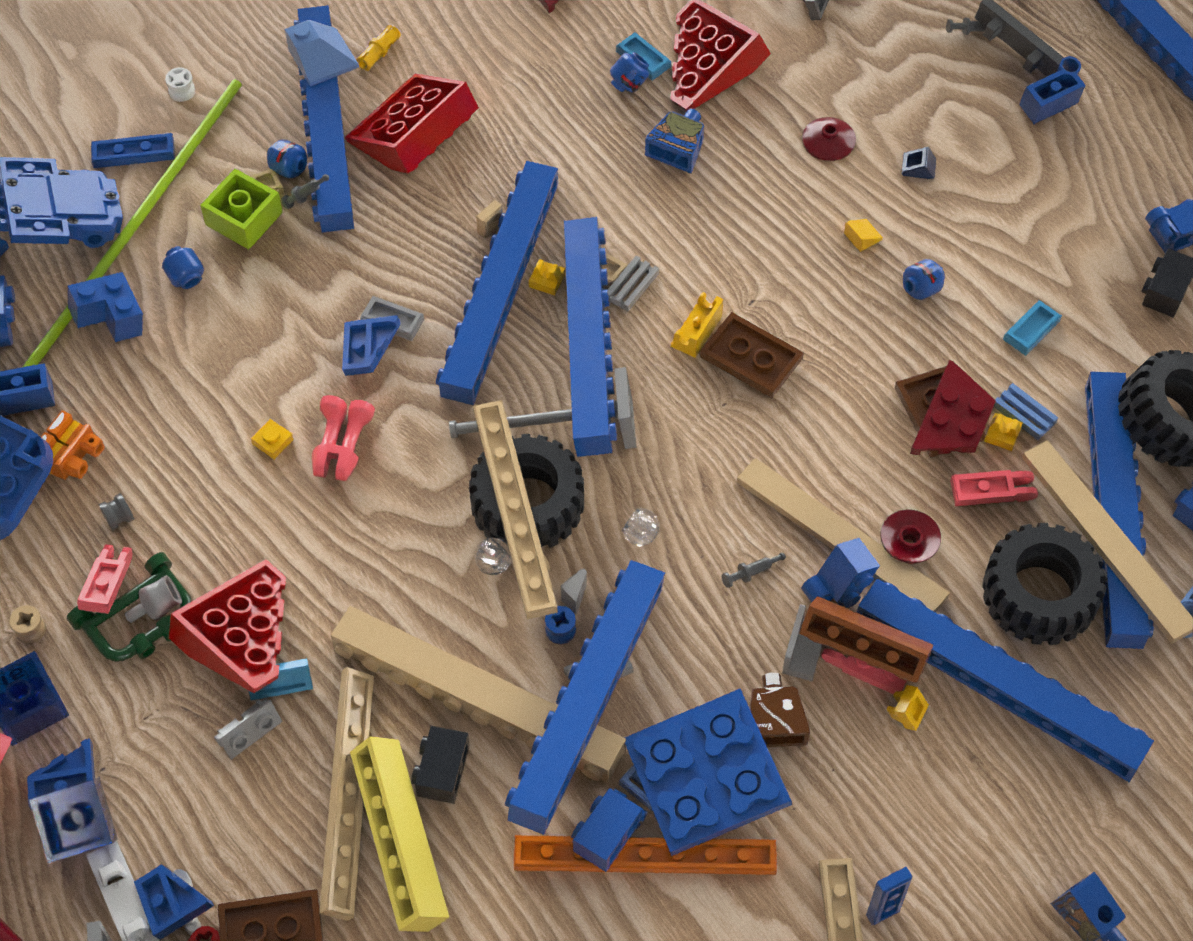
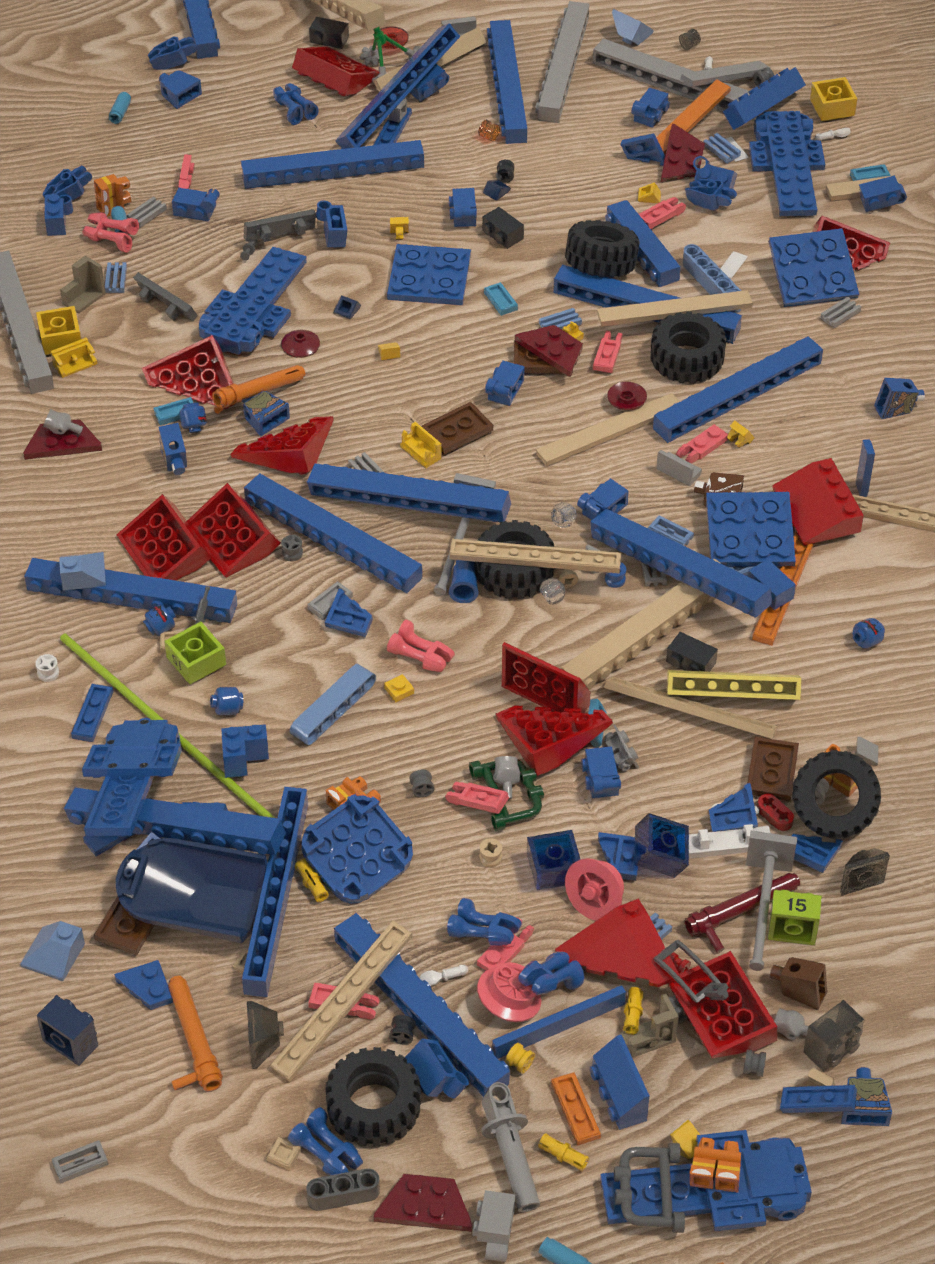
camera: 70 degrees left, 10 degrees down
(190, 713) = (601, 771): none -> blue hinge
(216, 376) = (332, 704): none -> medium blue beam
(314, 591) = (542, 681): none -> red slope
(378, 47) = (79, 546): yellow pin -> none
(460, 179) = (232, 531): none -> red slope
(462, 450) = (464, 583): none -> blue plant
(464, 243) = (292, 547): none -> dark grey wheel
(488, 219) = (277, 524): tan tile -> none
(546, 277) = (341, 509): yellow tile -> none
(562, 71) = (175, 454): none -> blue torso
(629, 190) = (288, 451): none -> red slope
(669, 695) = (670, 530): none -> medium blue tile
(674, 93) = (236, 393): none -> orange cylinder
(686, 568) = (607, 495): none -> blue hinge
(746, 571) = (614, 473): dark grey piece -> none
(803, 853) = (821, 503): none -> red slope
(843, 574) = (646, 429): blue hinge -> none
(849, 62) = (245, 316): none -> blue piece
(859, 380) = (505, 383): none -> blue hinge
(866, 639) = (697, 428): dark orange brick -> none
(923, 279) = (443, 331): blue head -> none
(1033, 232) = (429, 274): none -> blue piece
(1099, 166) = (399, 226): none -> yellow tile

